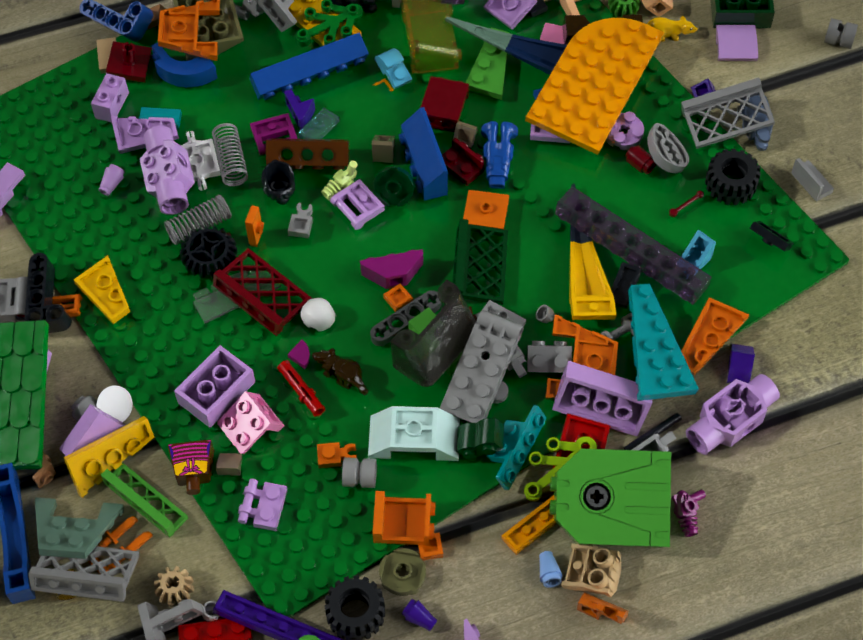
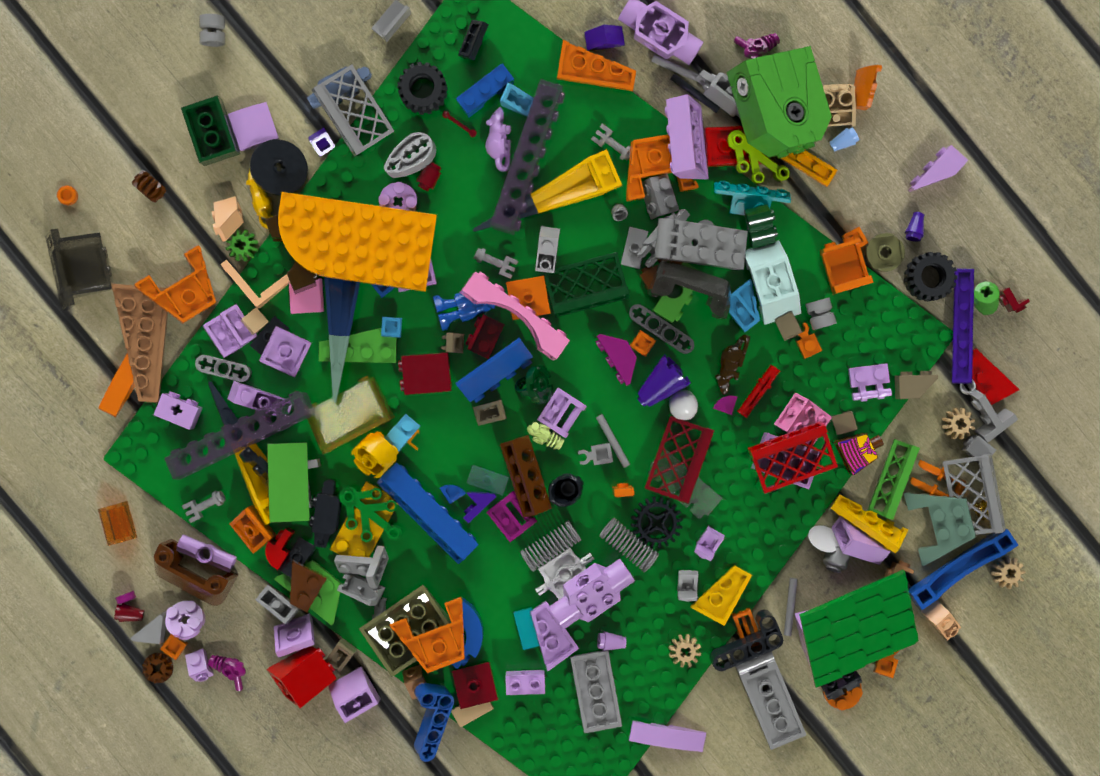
camera: 105 degrees left, 30 degrees up
(67, 238) = (684, 643): none -> tan gear
(69, 153) = (596, 691): none -> piece
(69, 359) = (790, 607): none -> light grey bar
(129, 260) = (687, 585): none -> light grey bracket
(136, 594) = (976, 446): none -> light grey brick
(162, 290) = (708, 543): none -> lavender bracket
(234, 381) = (787, 441): none -> red fence
(238, 543) = (913, 386): none -> dark tan slope
(309, 241) = (612, 440): none -> light grey bar
(320, 95) = (452, 492): none -> blue tile
(351, 300) = (662, 382): none -> dark purple cone
(359, 436) = (788, 326): none -> dark tan slope
(383, 36) = (374, 454): none -> yellow brick
(396, 395) = (743, 306): none -> dark azure wing
(438, 207) = (547, 339): none -> bright pink arch
(500, 88) = (391, 327): none -> dark azure tile
(530, 236) = (547, 249): none -> light grey slope
(544, 181) = (504, 265): none -> light grey hinge
(626, 276) = (566, 152): black plate -> none
(657, 356) = (633, 104): teal wing -> none
(660, 228) = (497, 143): none -> lavender animal
(675, 50) = (265, 173): none -> black piece
(687, 422) = (674, 67): none -> light grey bar
(709, 217) = (478, 94): none -> blue arch

